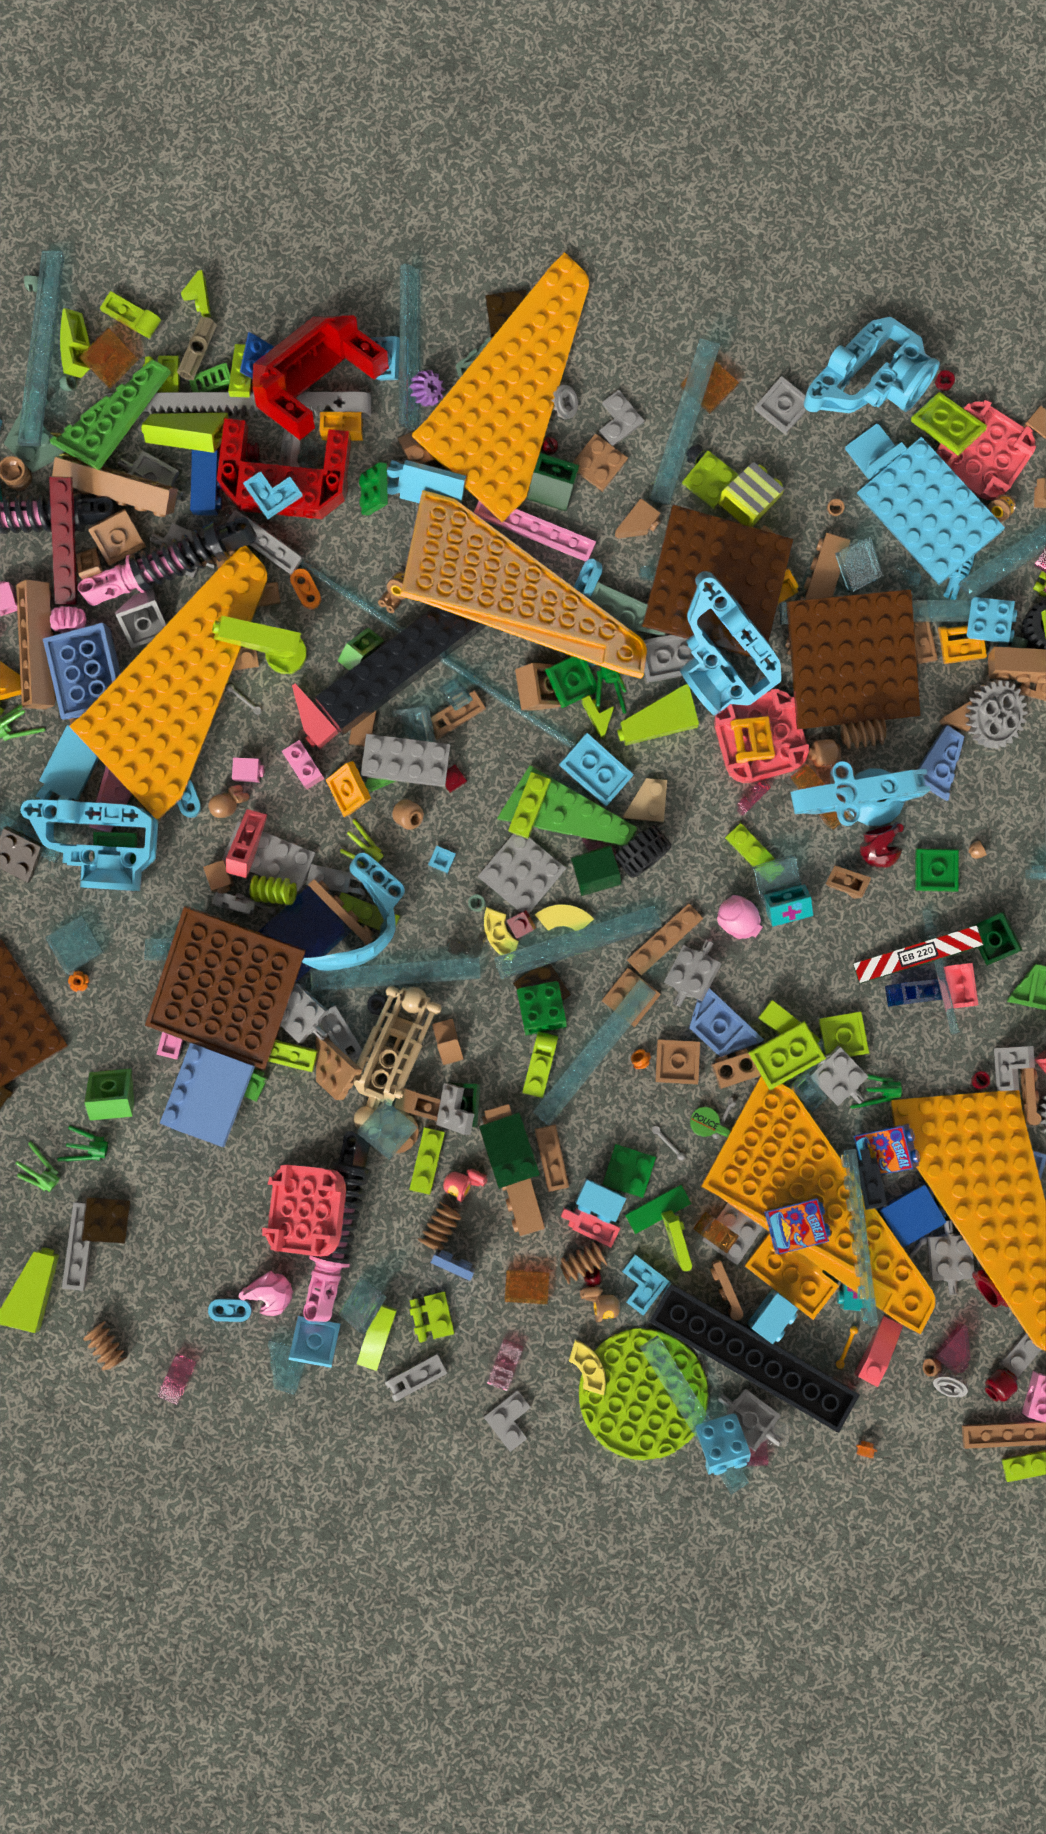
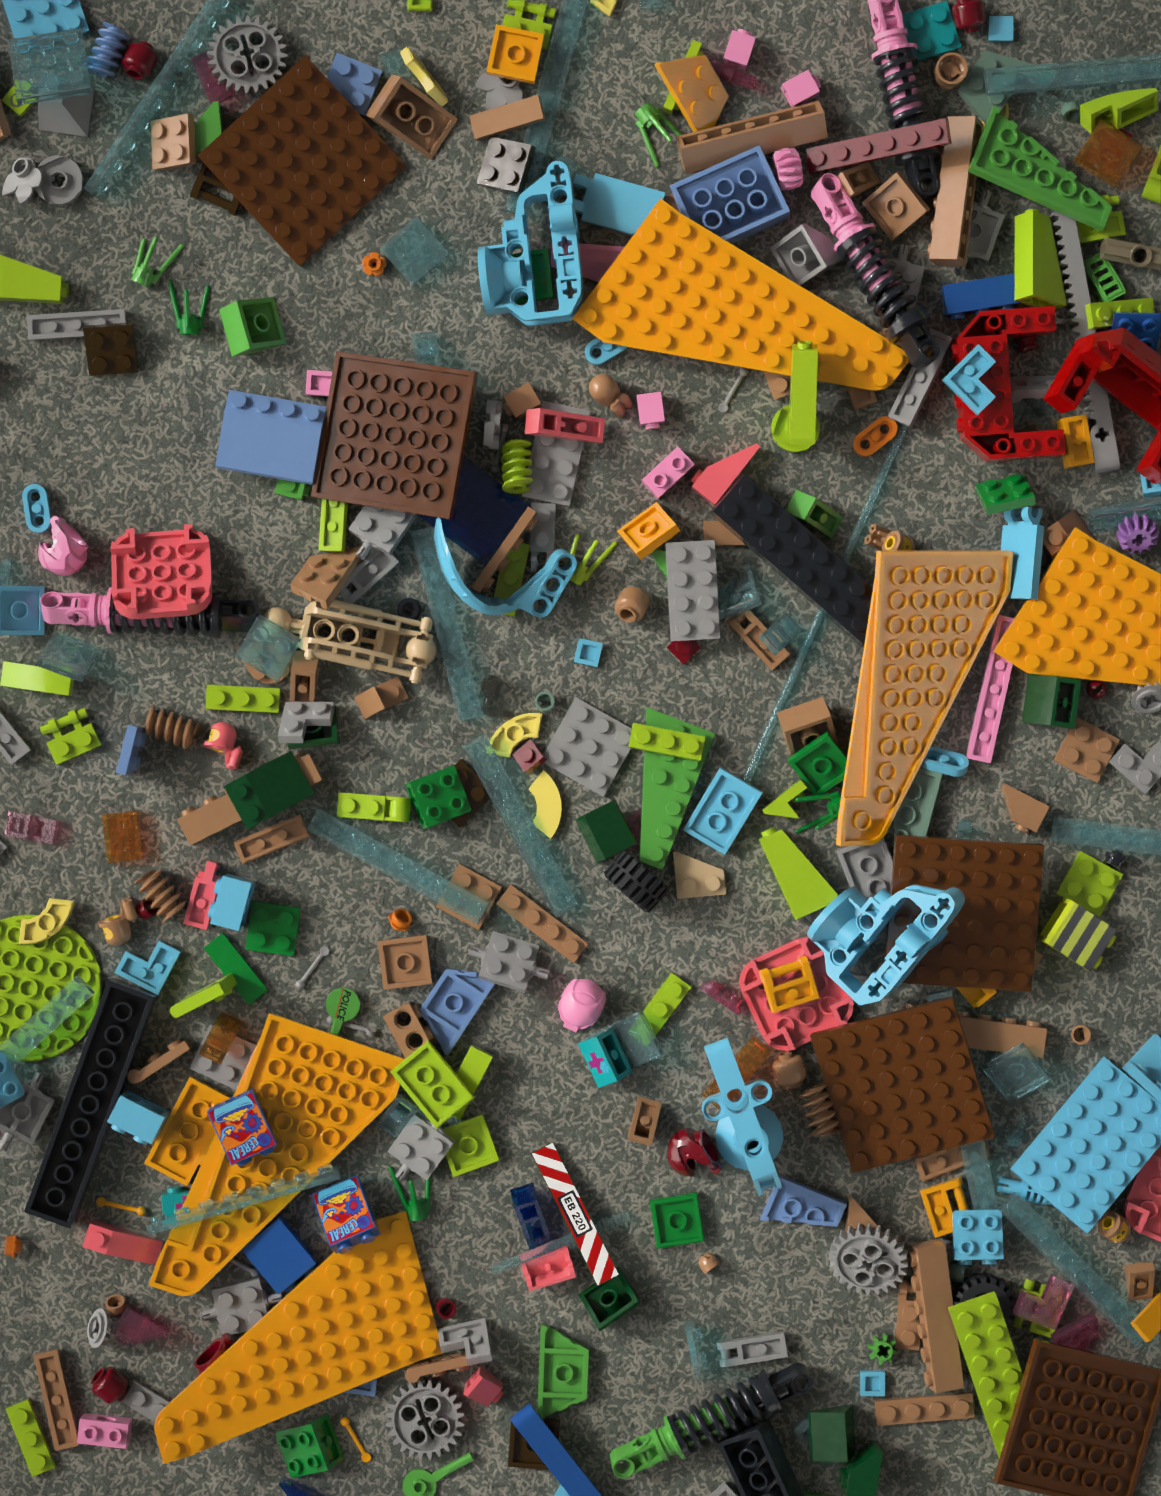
camera: 75 degrees right, 5 degrees up
(871, 1181) = (308, 1202): black hinge -> none

